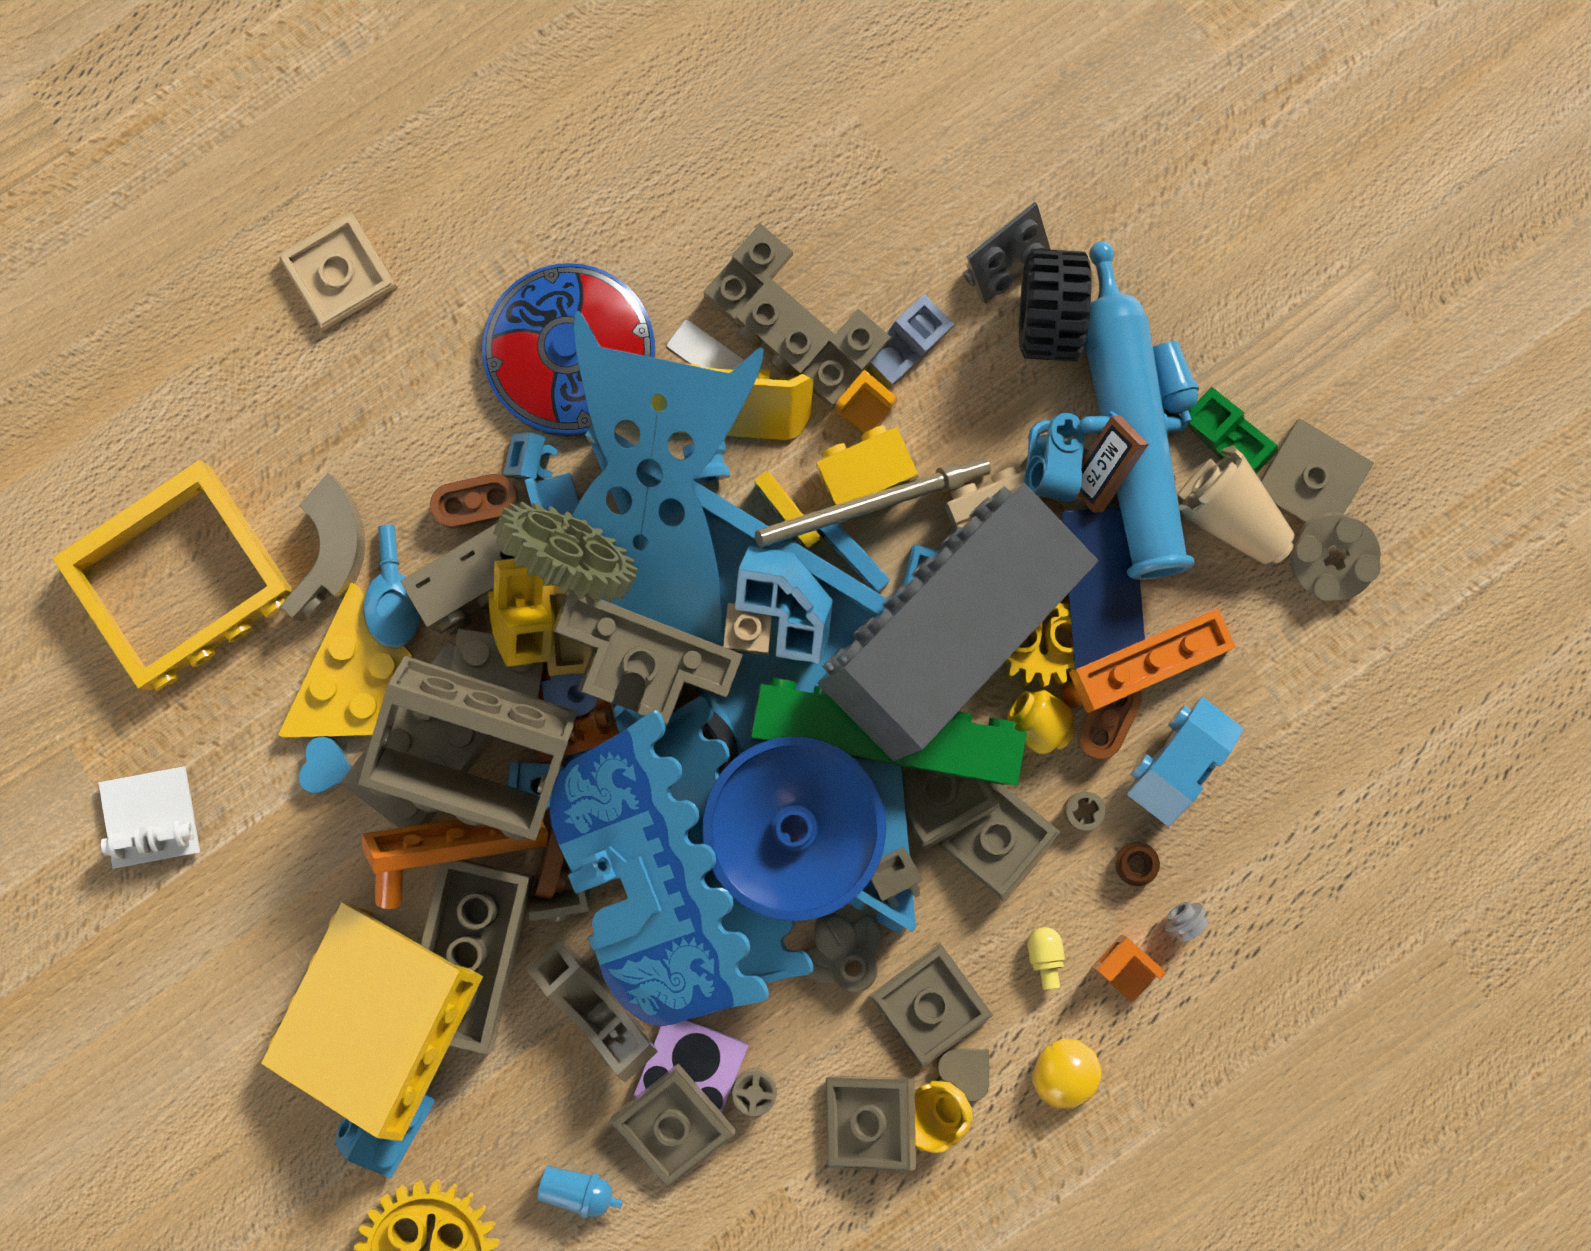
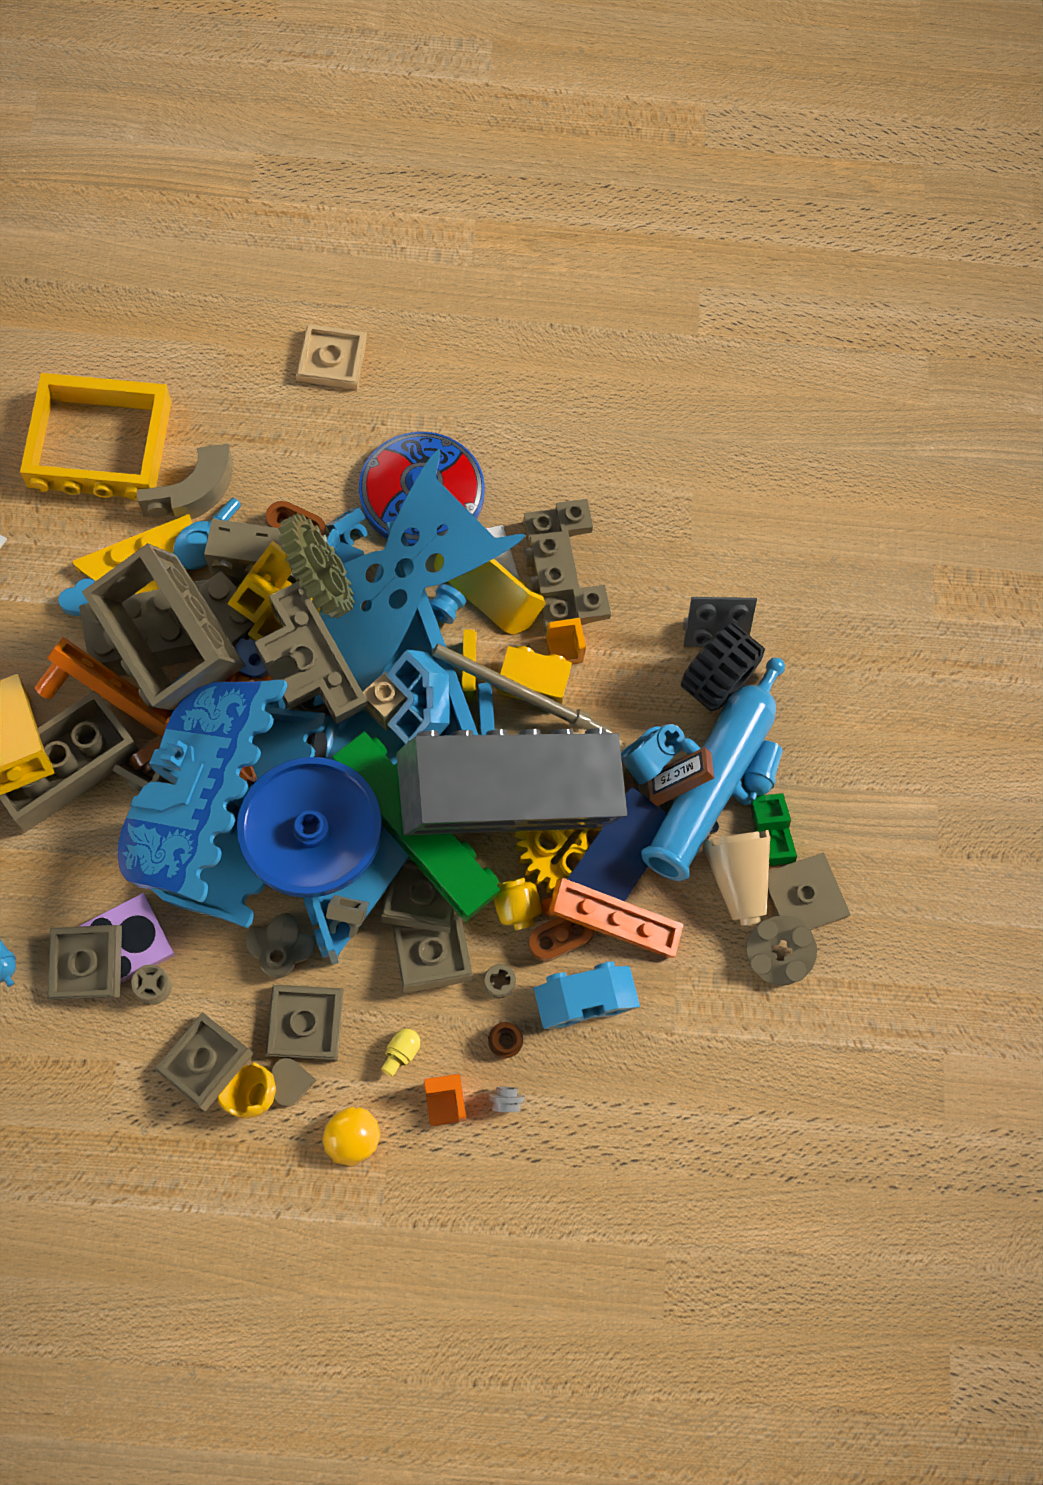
camera: 30 degrees right, 15 degrees down
(593, 1008) = (101, 829): dark tan arch -> none
(911, 339) = (621, 631): sand blue slope -> none

